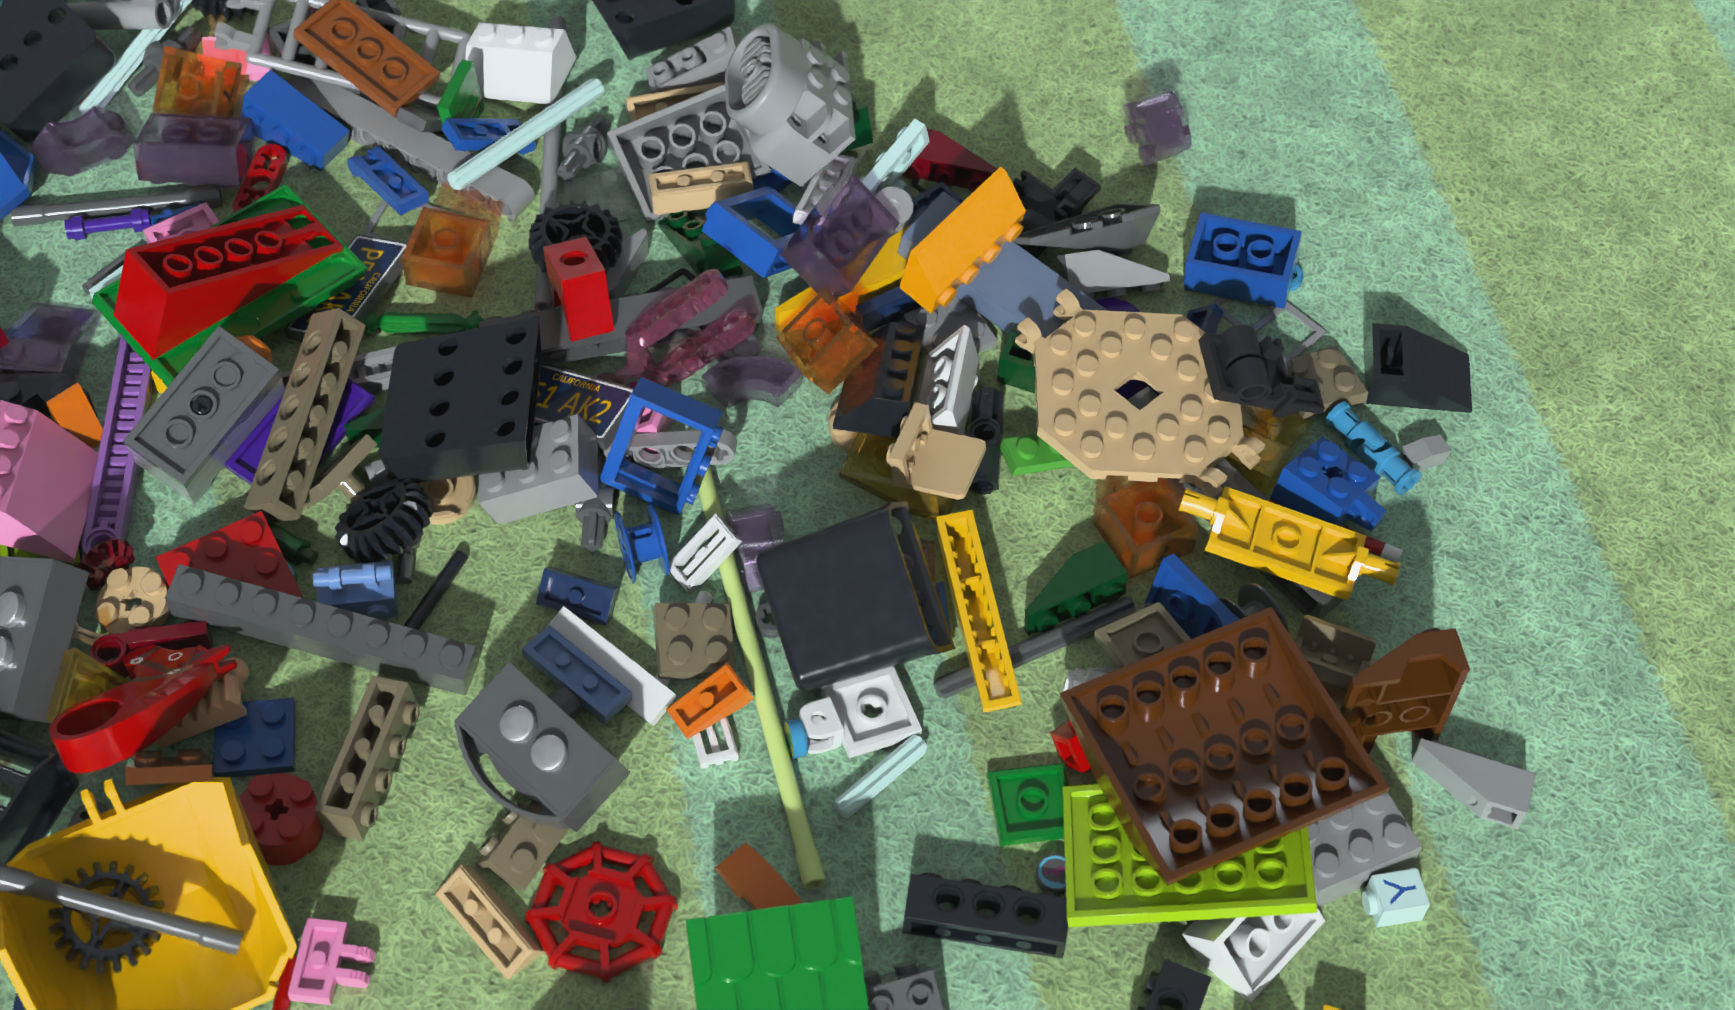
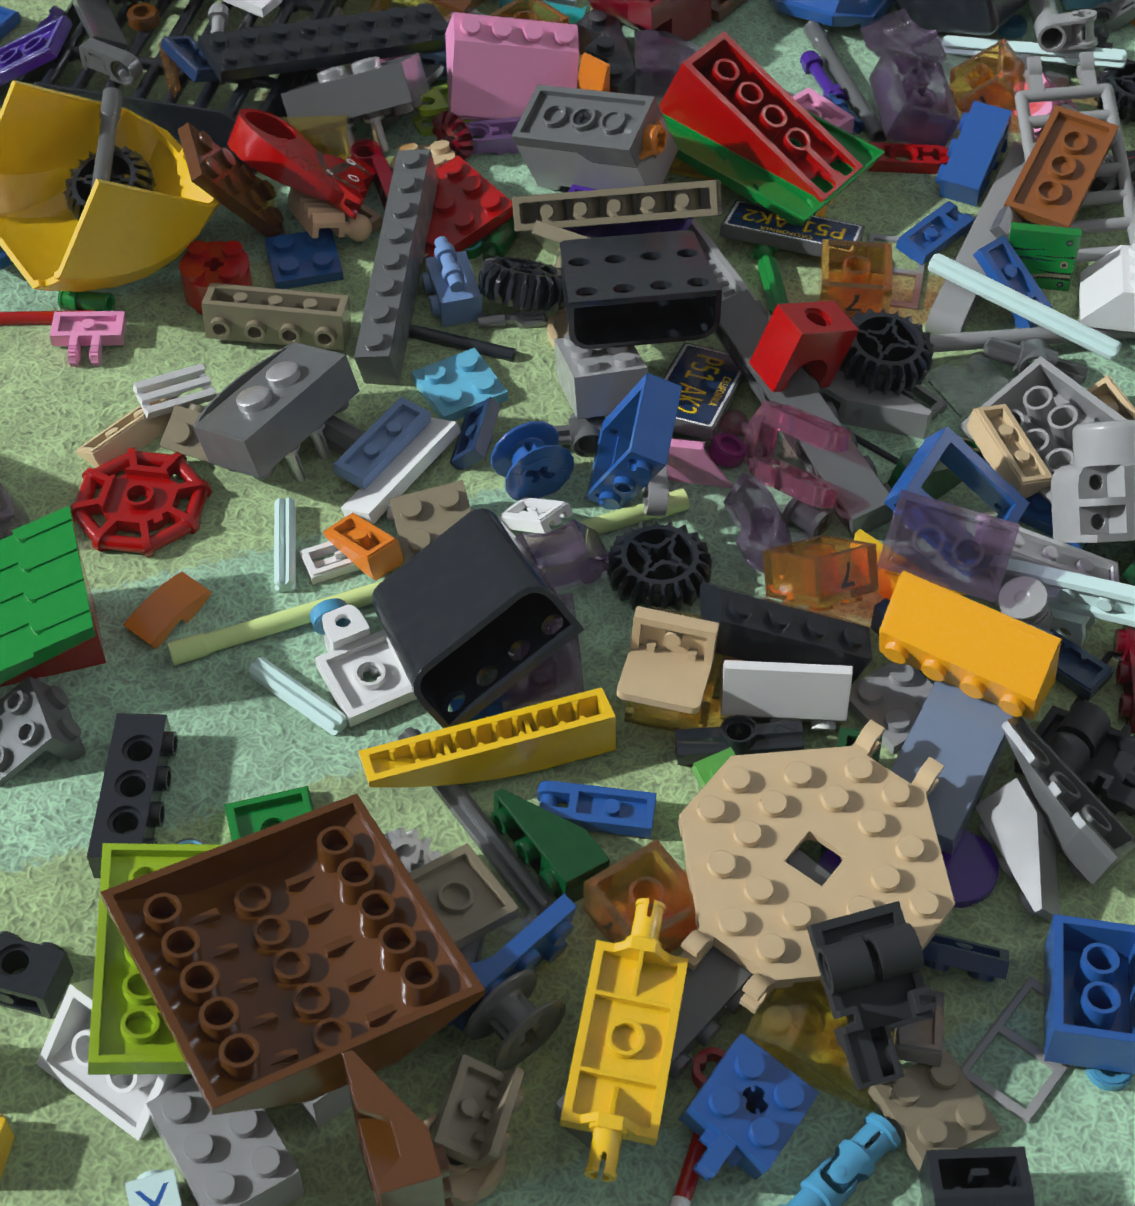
camera: 85 degrees right, 5 degrees down
(477, 856) = (172, 385): none -> white tile
(496, 606) = (458, 384): none -> medium azure plate
(687, 777) = (285, 545): none -> light aqua axle
(779, 477) = (659, 558): none -> black gear
(1036, 552) = (600, 807): none -> blue plate

